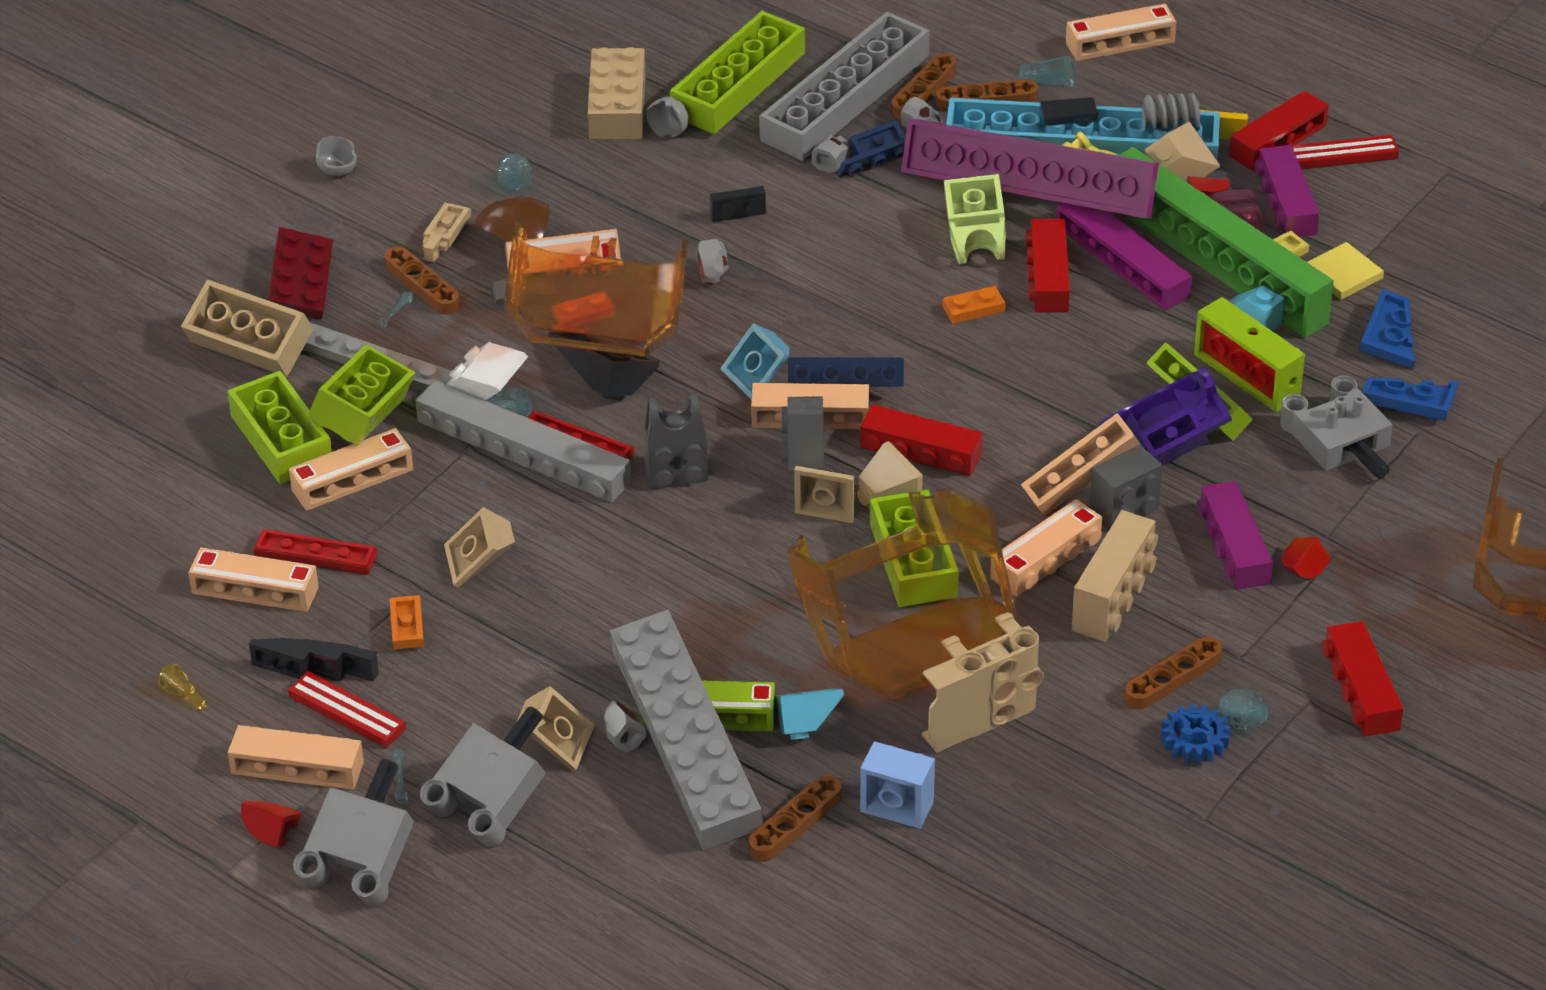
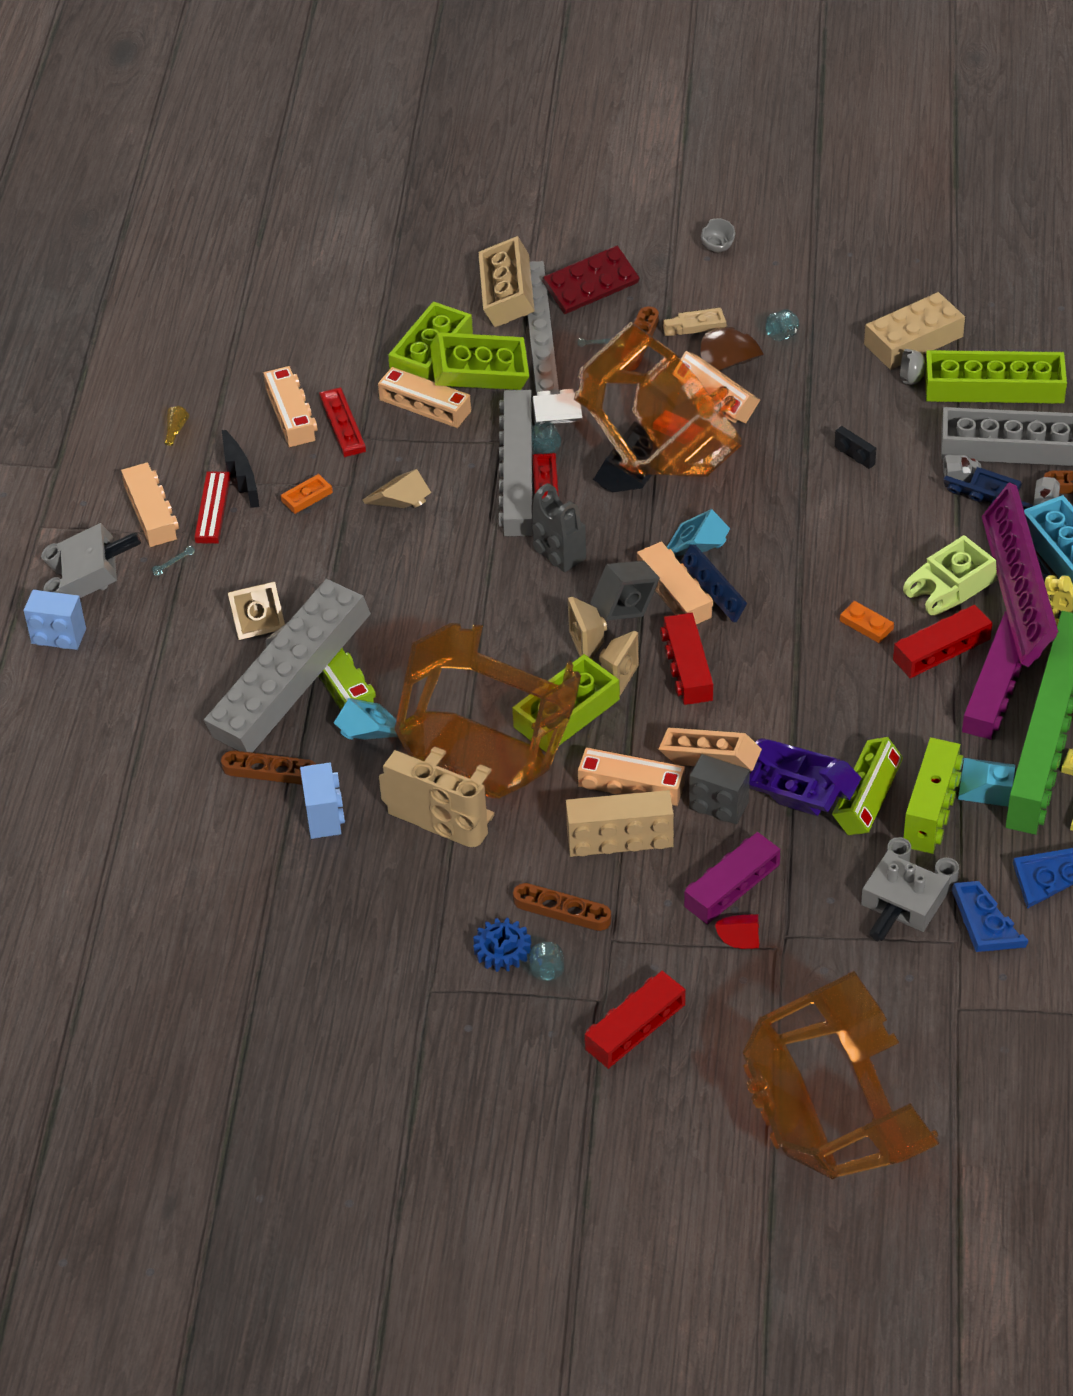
camera: 60 degrees right, 5 degrees up
(268, 821) = (89, 516): red brick -> none
(421, 901) = (55, 619): none -> light blue brick
(490, 776) = (178, 596): light grey piece -> none
(711, 260) = (780, 463): light grey rock -> none

